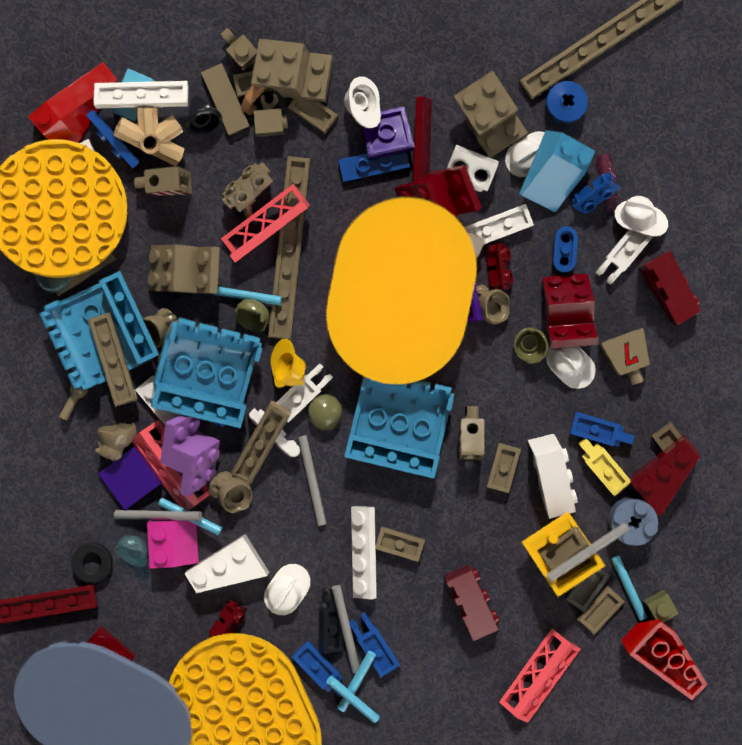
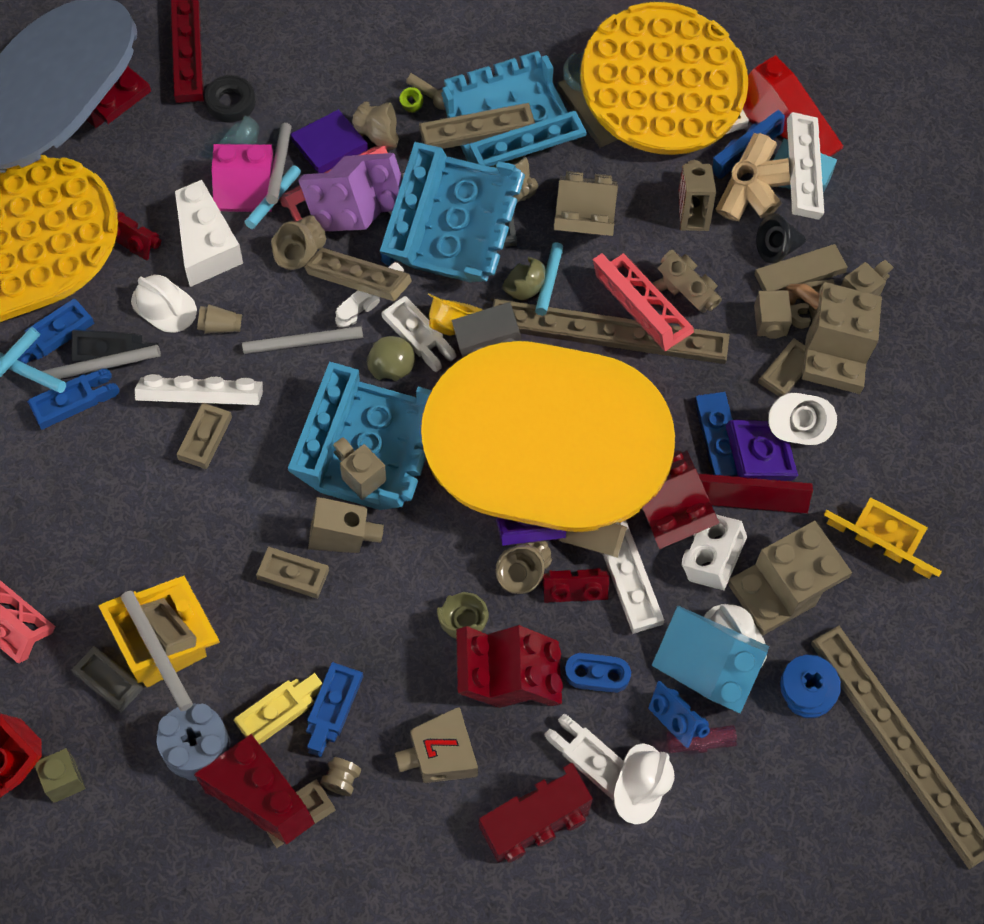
camera: 85 degrees right, 25 degrees down
(87, 419) = (416, 96): none -> lime hinge
(301, 545) = (218, 320): none -> dark tan cone
(313, 337) = (486, 328): none -> dark grey brick
(429, 425) = (359, 468): none -> dark tan brick
(447, 43) = (890, 530): none -> yellow bracket
(472, 602) = (110, 516): dark red wedge -> none
(553, 475) = (273, 631): white wedge -> none
(571, 366) = (428, 677): white piece -> none
(600, 610) = (70, 695): dark tan tile -> none
(629, 588) = (100, 736): medium azure bar -> none
(649, 420) = (340, 776): none -> dark tan wheel

